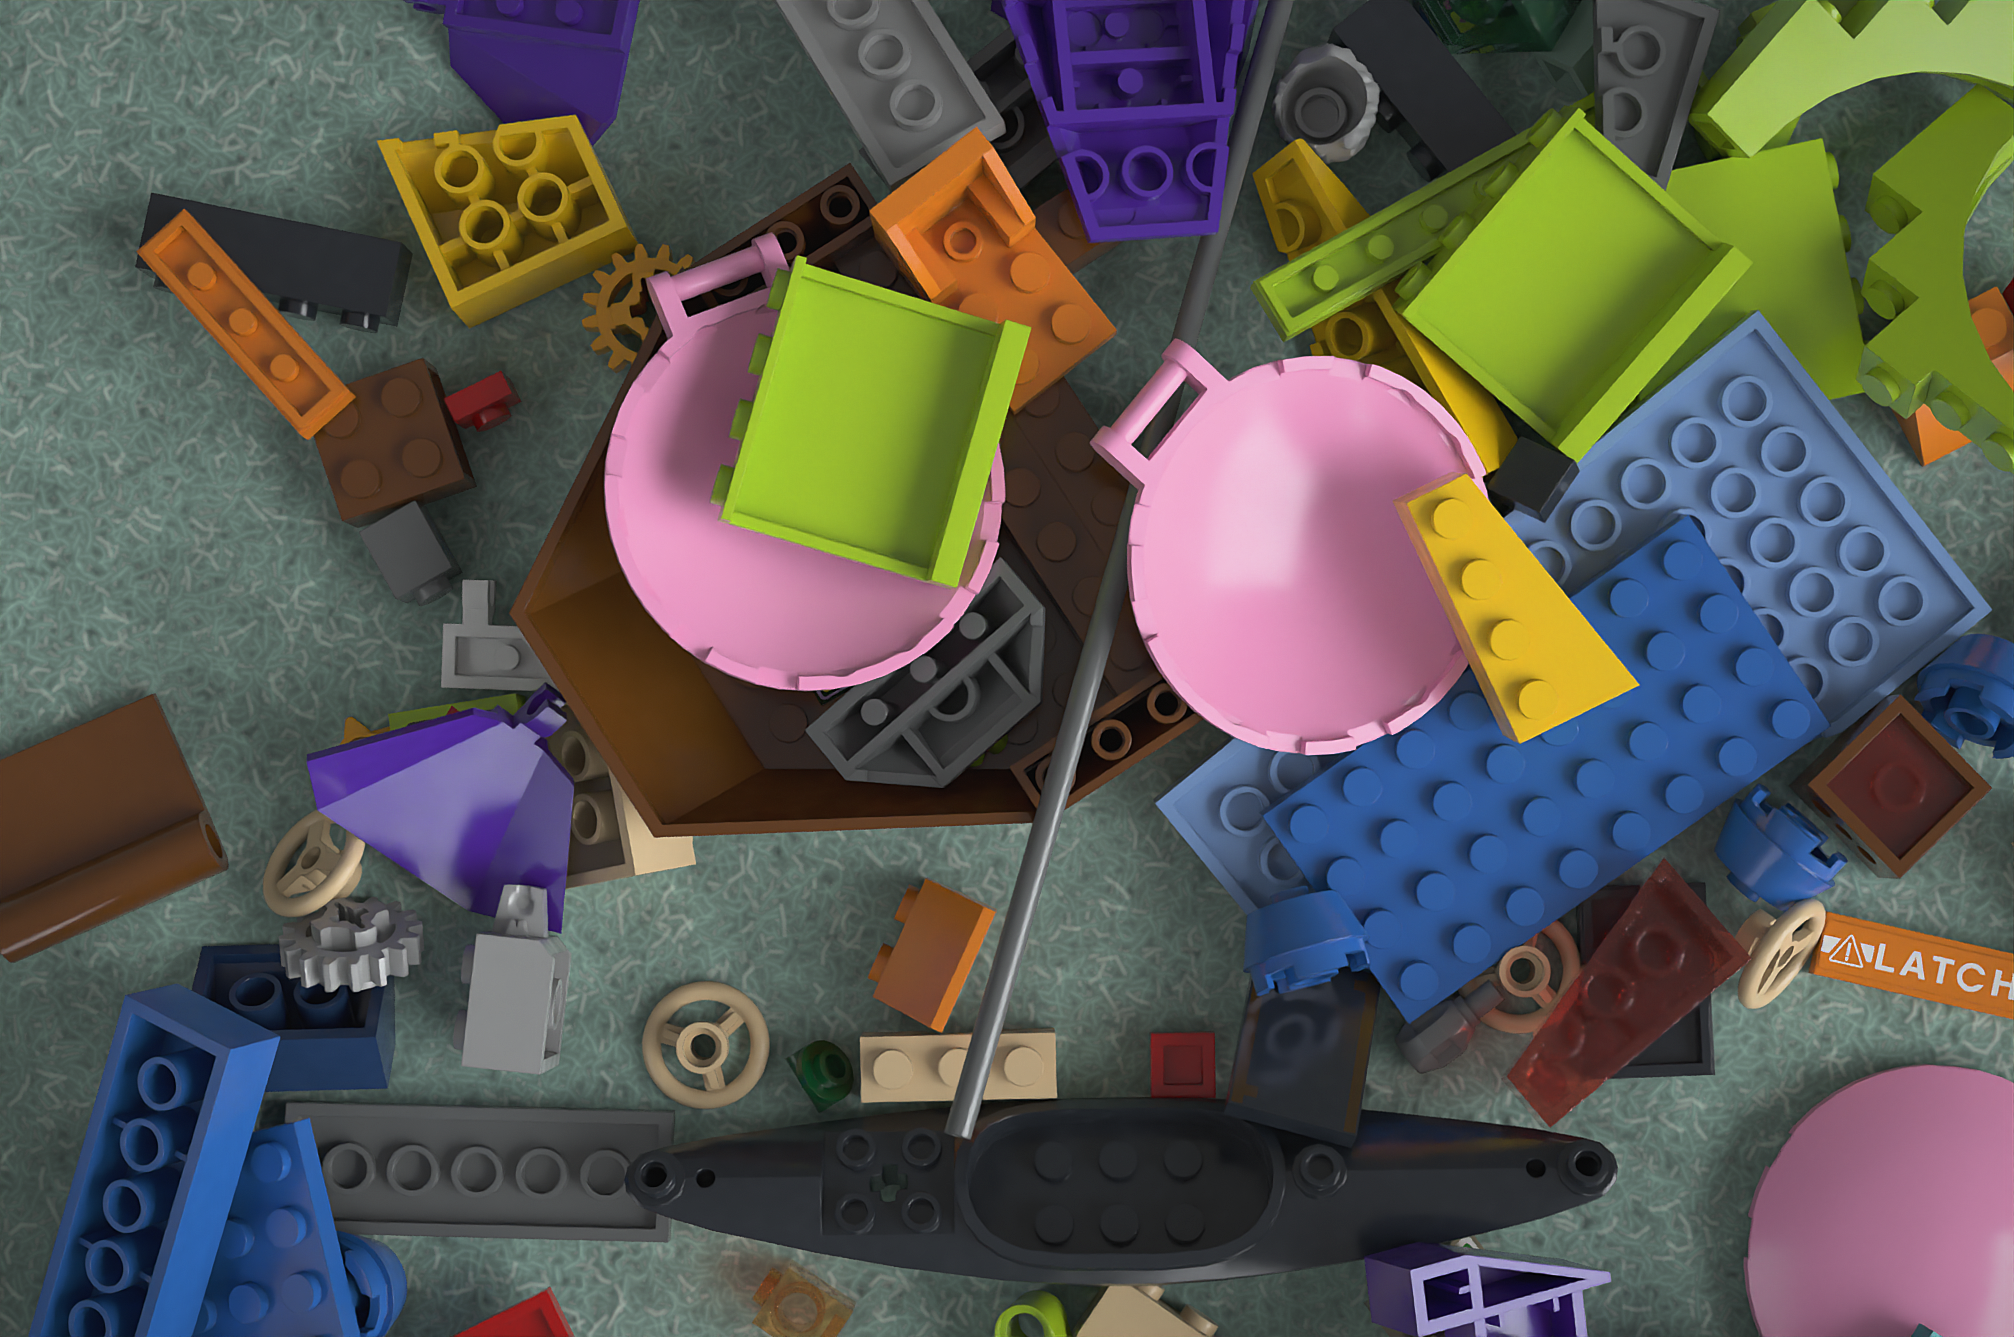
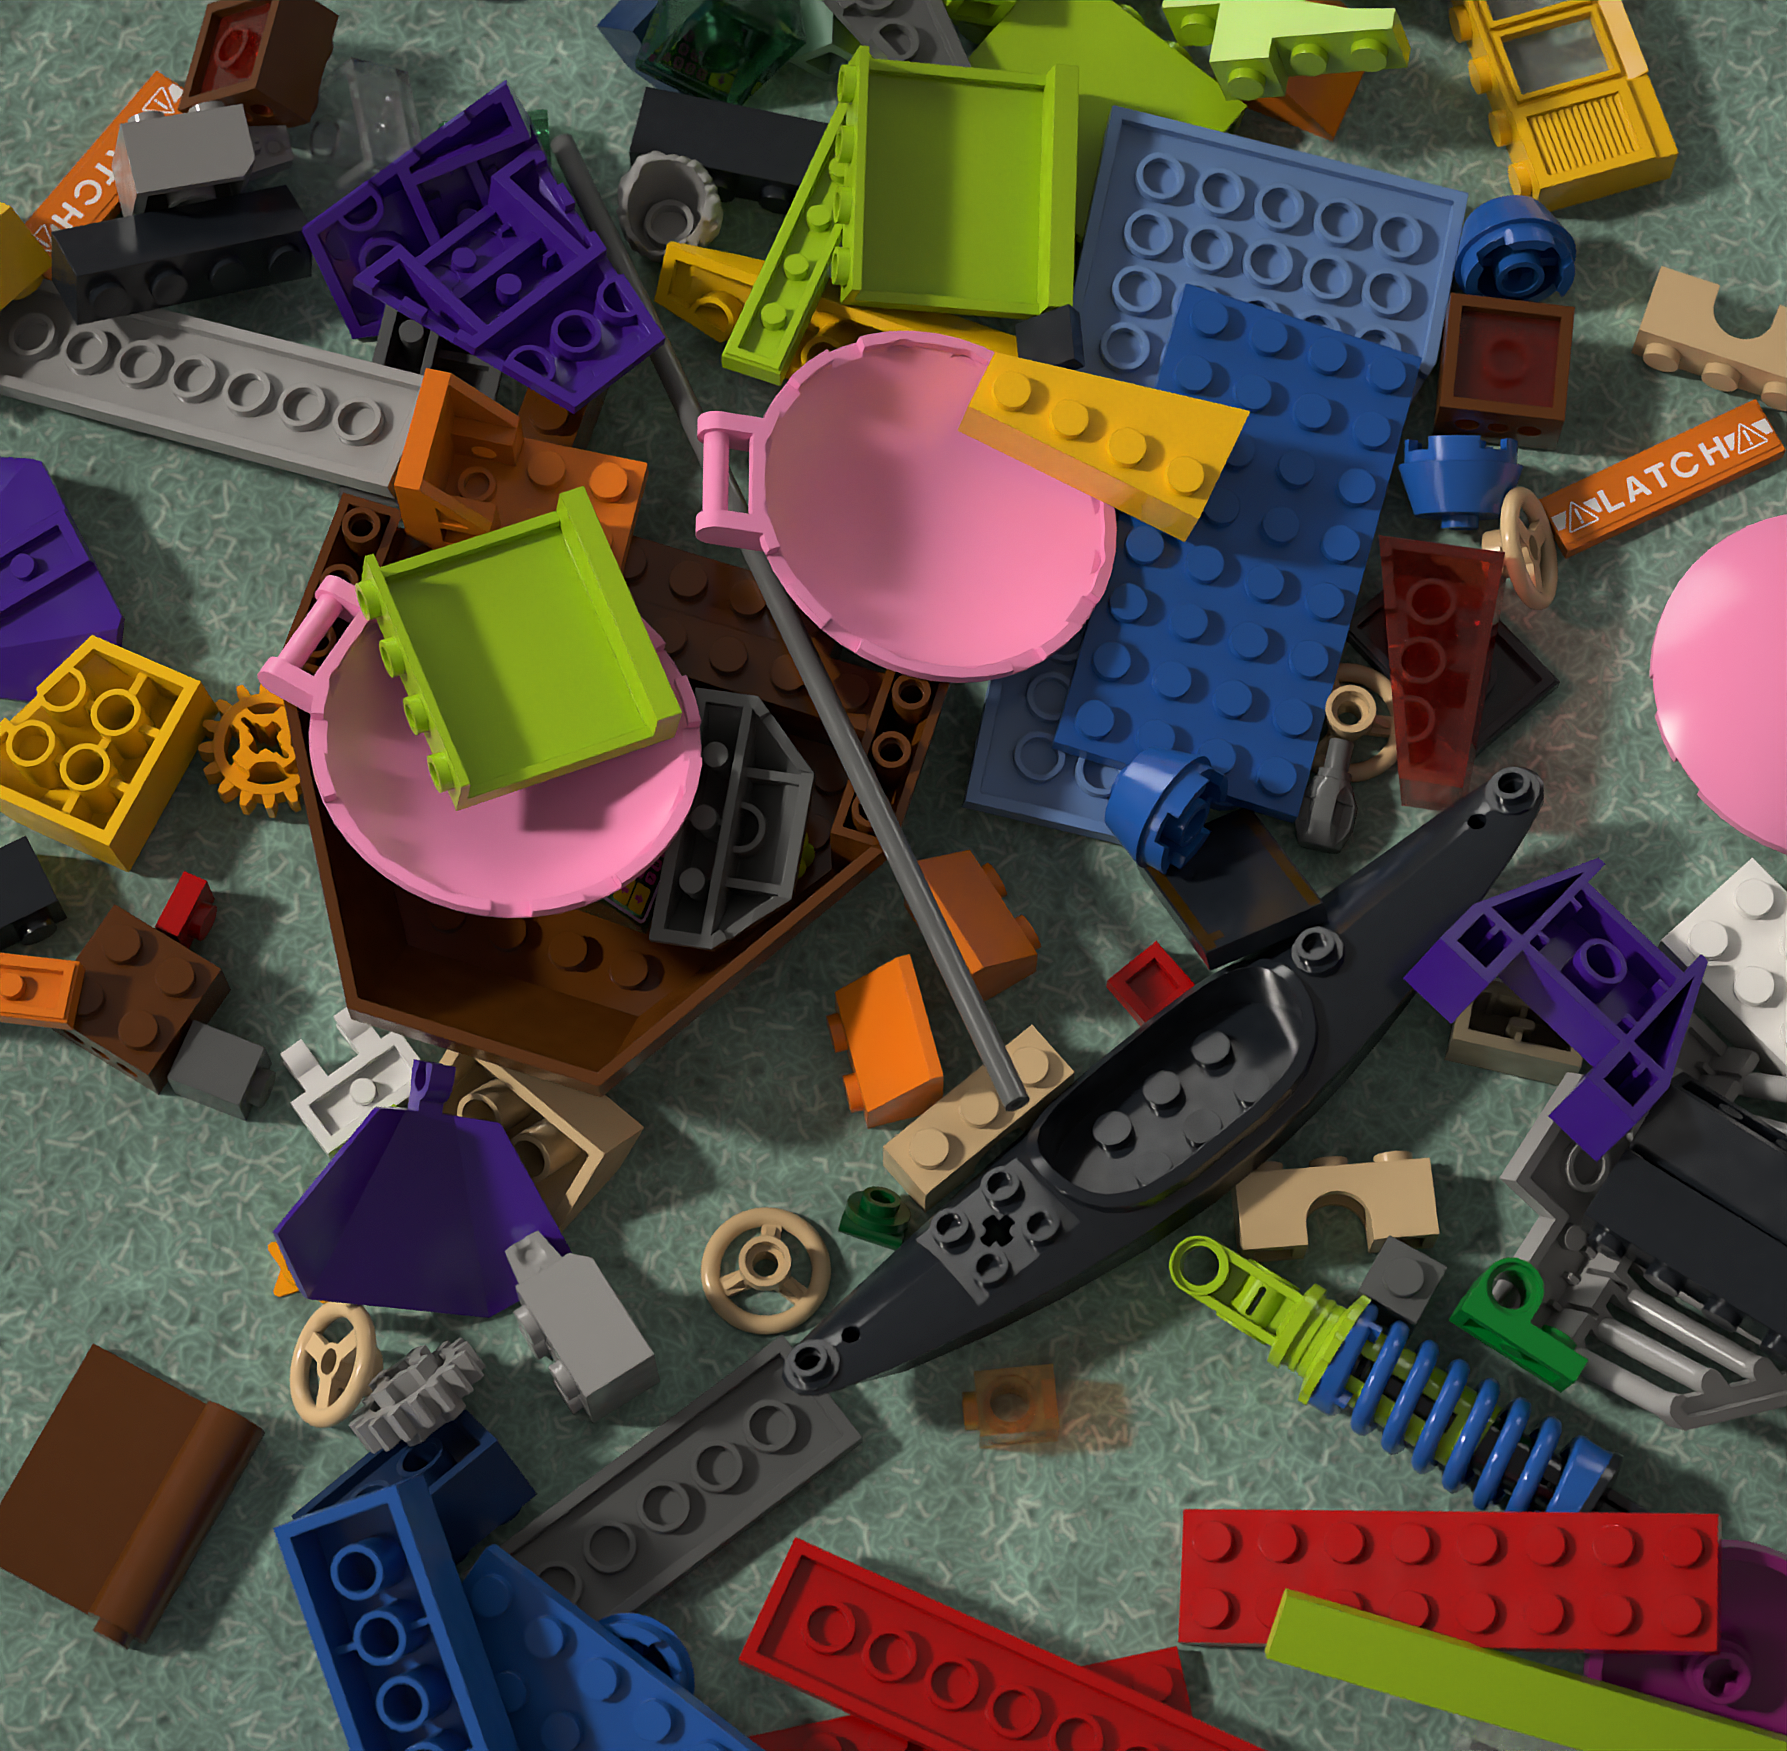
camera: 40 degrees left, 15 degrees down
(1080, 907) = (991, 940): none -> orange slope

